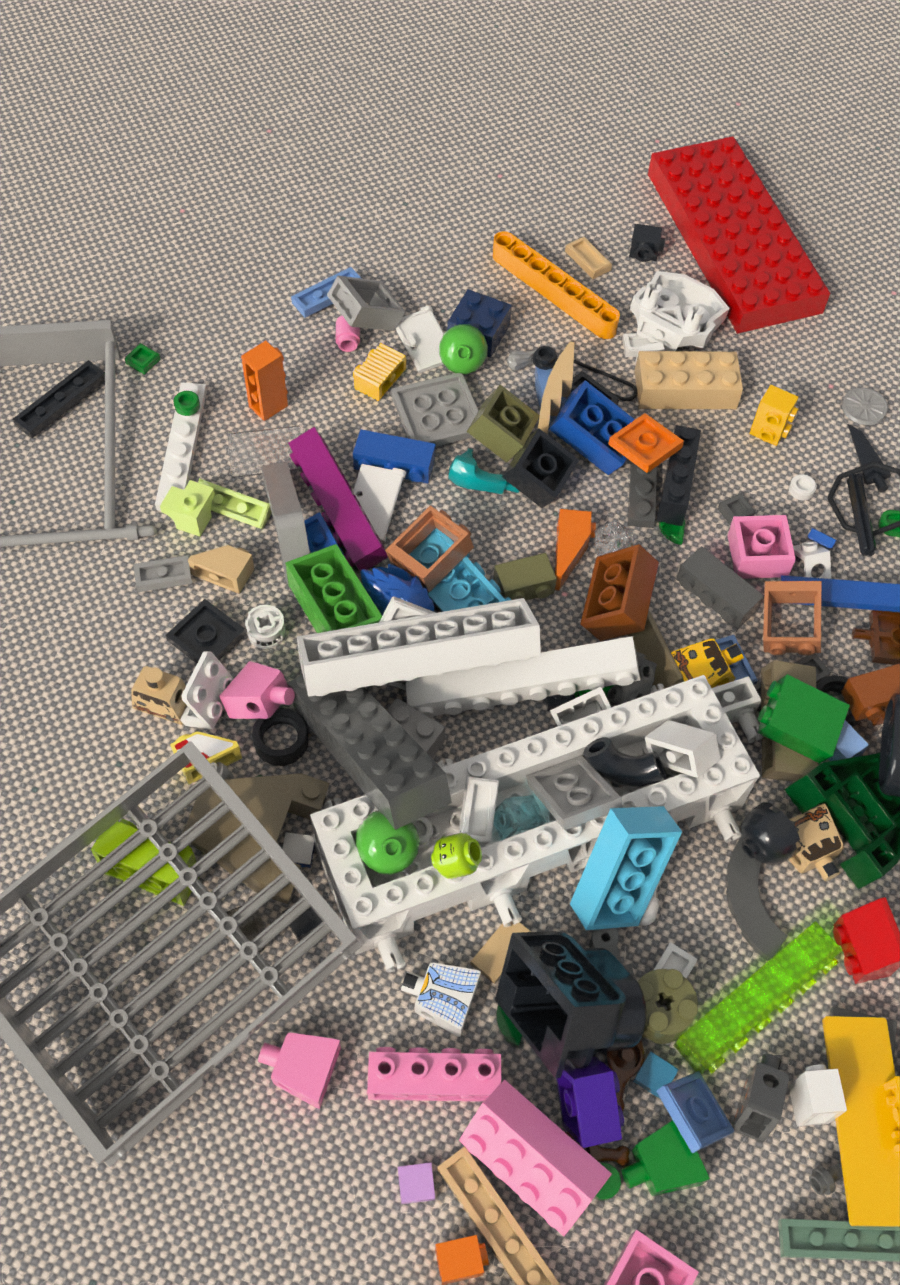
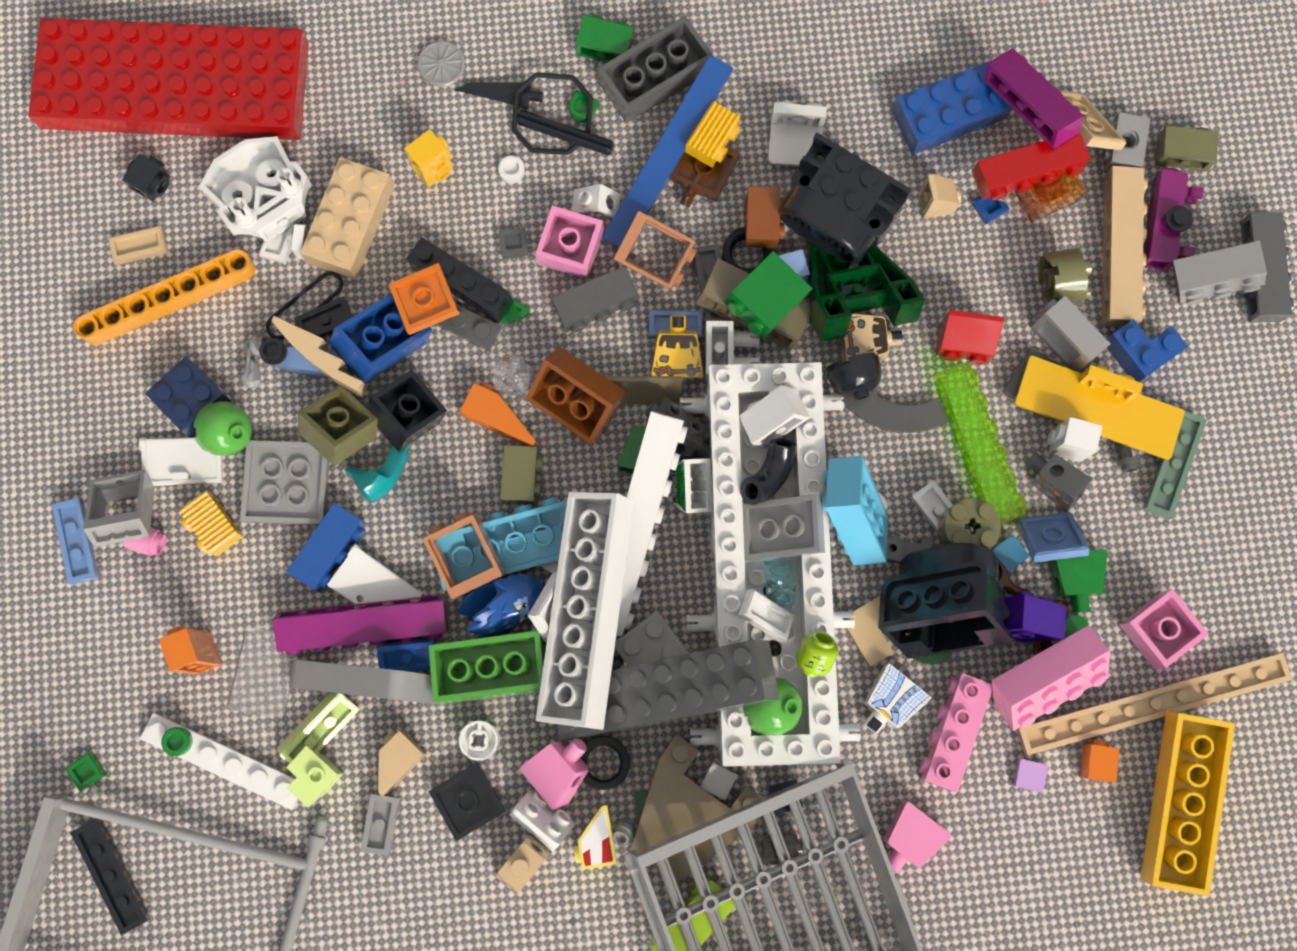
camera: 70 degrees left, 20 degrees up
(822, 539) = (578, 181): blue tile -> none

